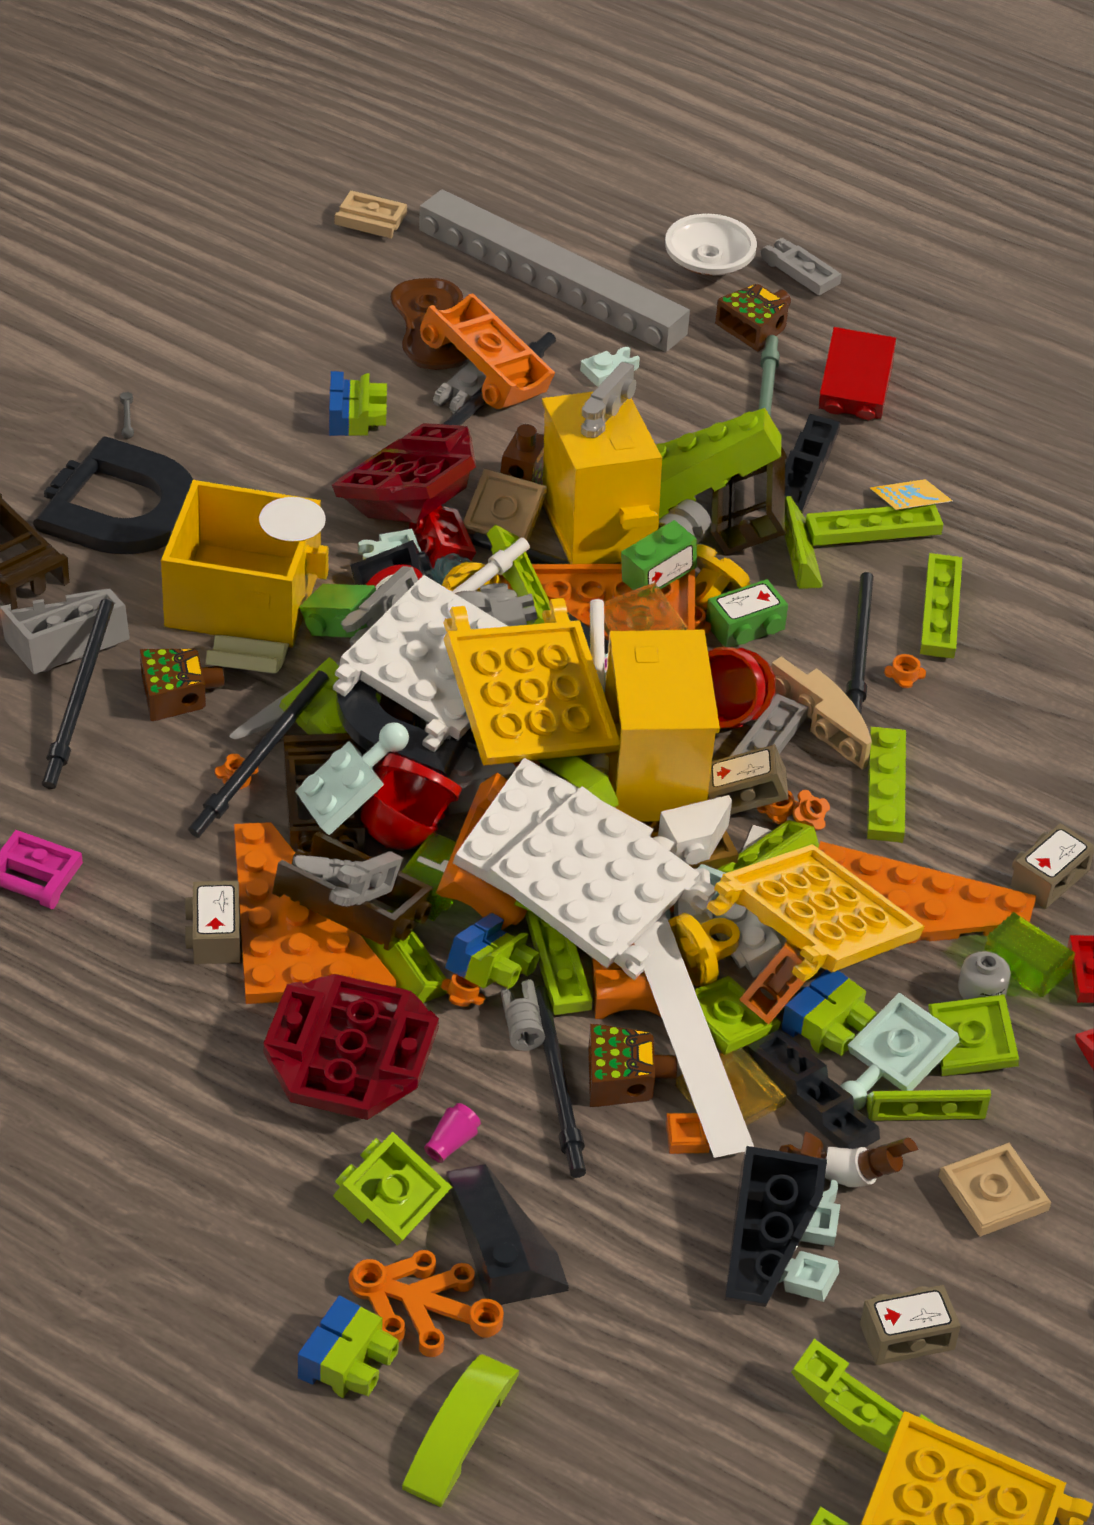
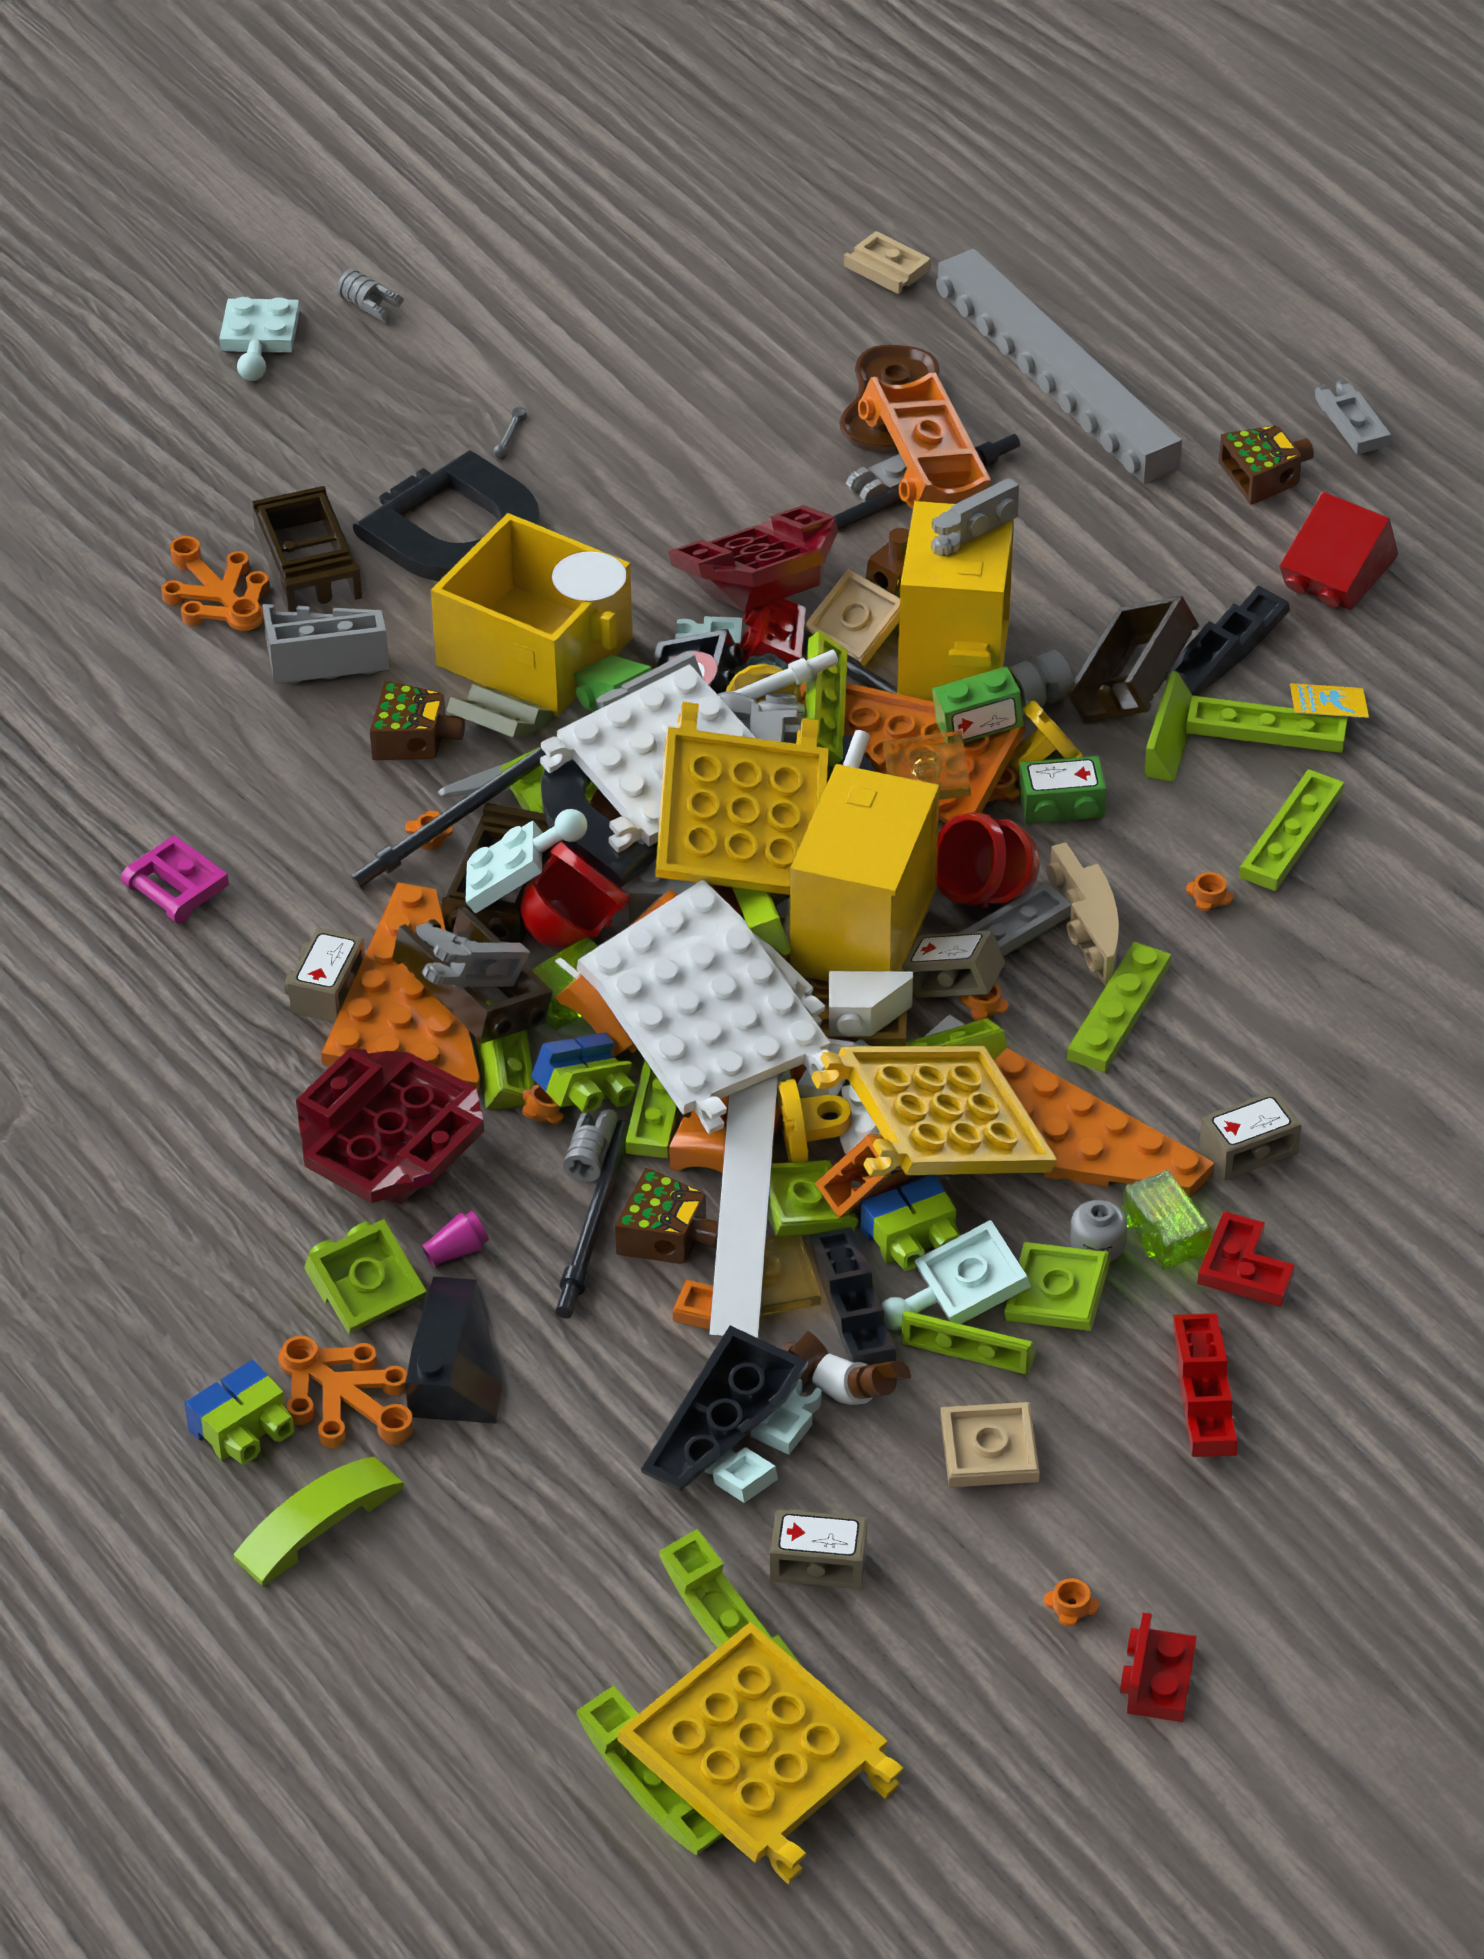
camera: 25 degrees right, 0 degrees up
(59, 750) = (258, 767): black bar -> none
(355, 405) = (754, 471): lime hips -> none
(603, 364) = (1063, 488): light aqua plate -> none
(710, 244) = (1251, 369): white dish -> none
(715, 455) = (1098, 610): lime wedge -> none
(769, 362) = (1252, 519): sand green bar -> none
(804, 815) = (1013, 1024): orange plate -> none
(856, 688) = (1144, 896): black bar -> none

